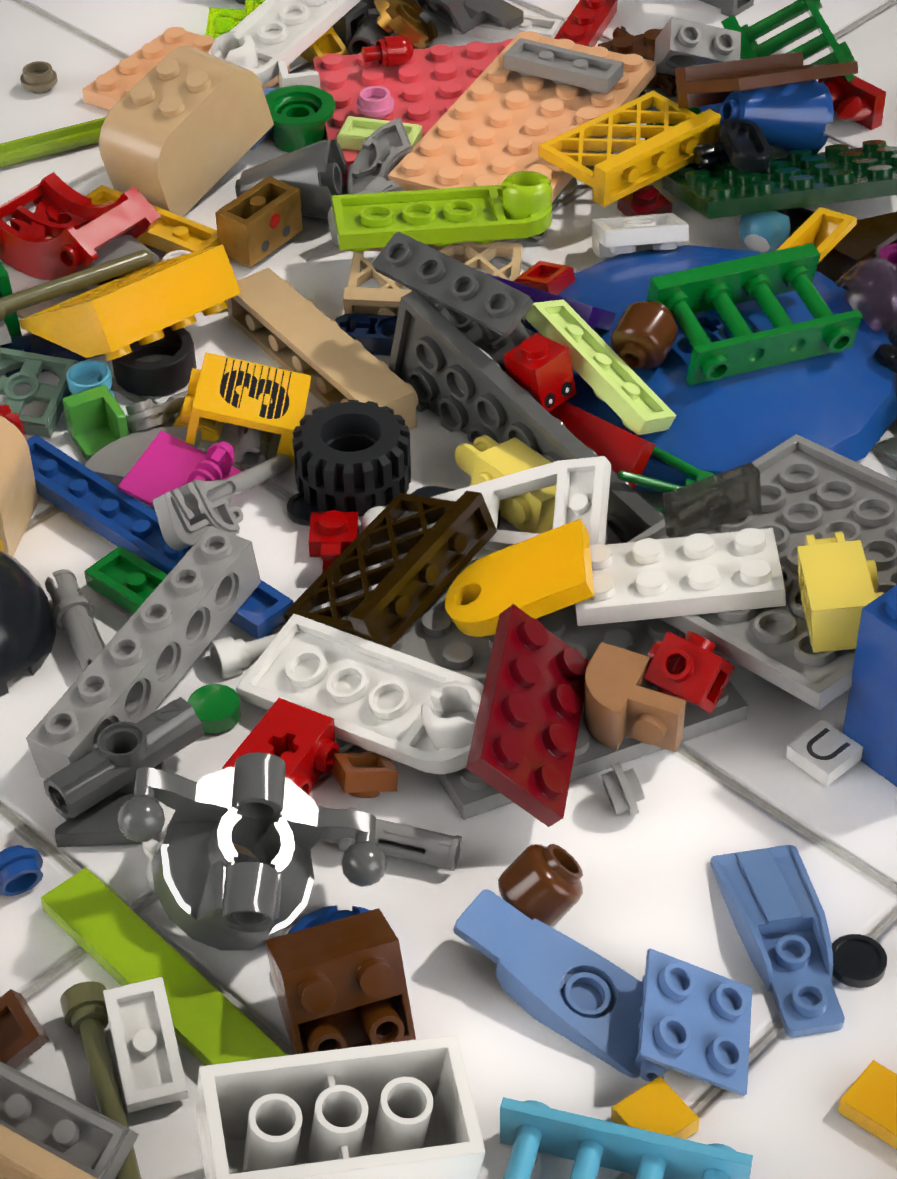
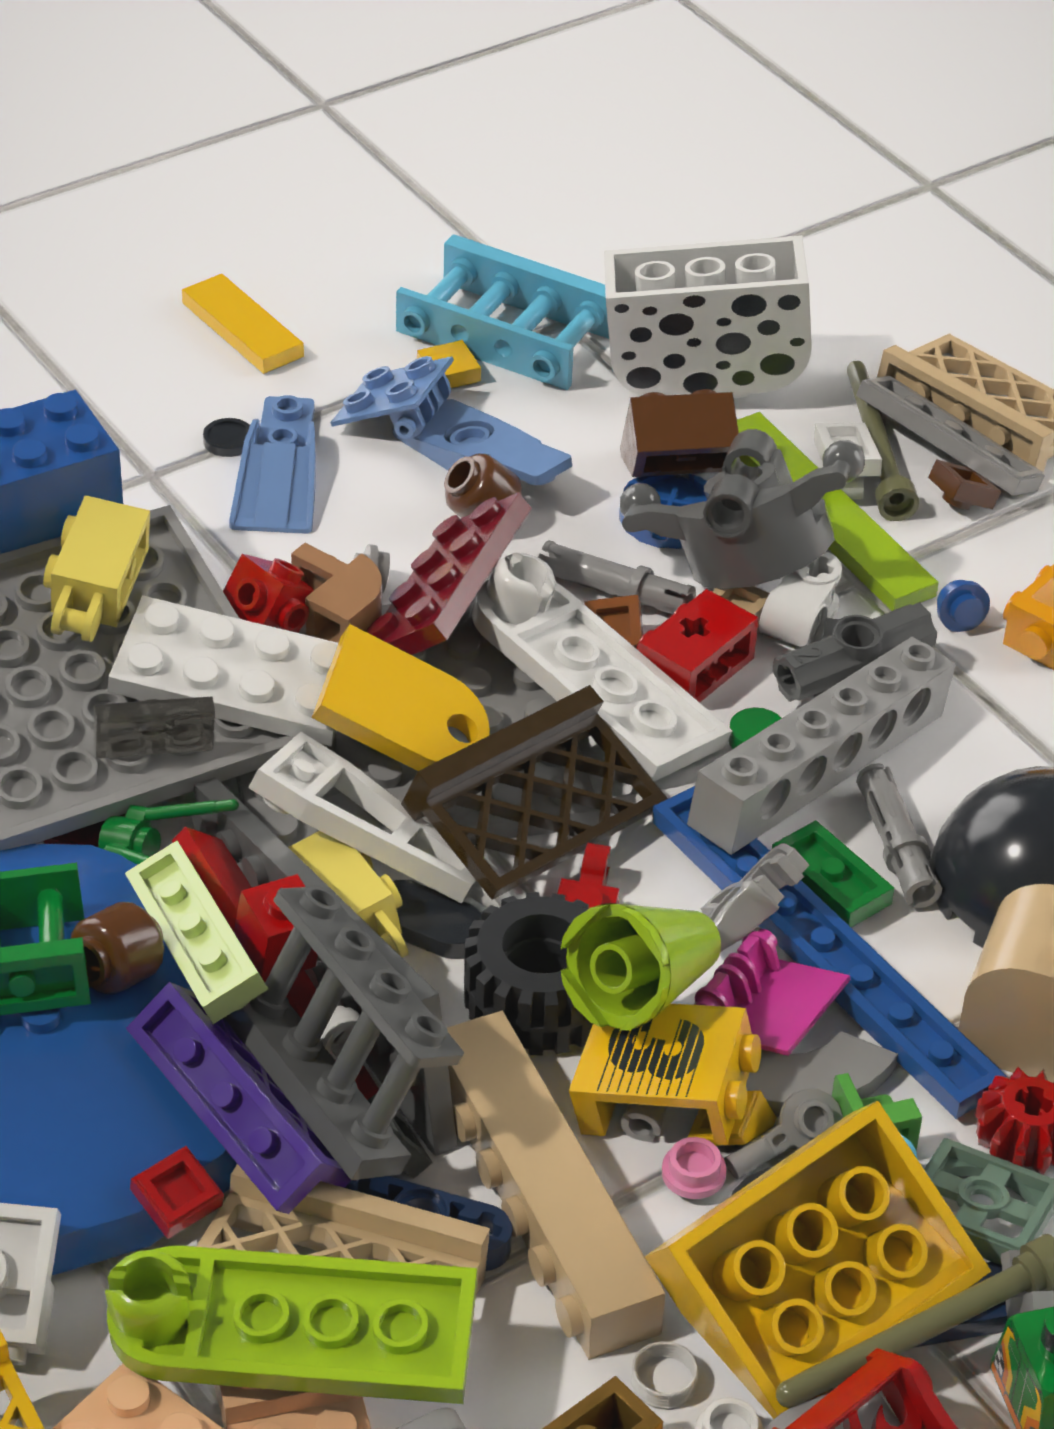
camera: 170 degrees left, 0 degrees up
(267, 406) = (635, 960): none -> lime cone

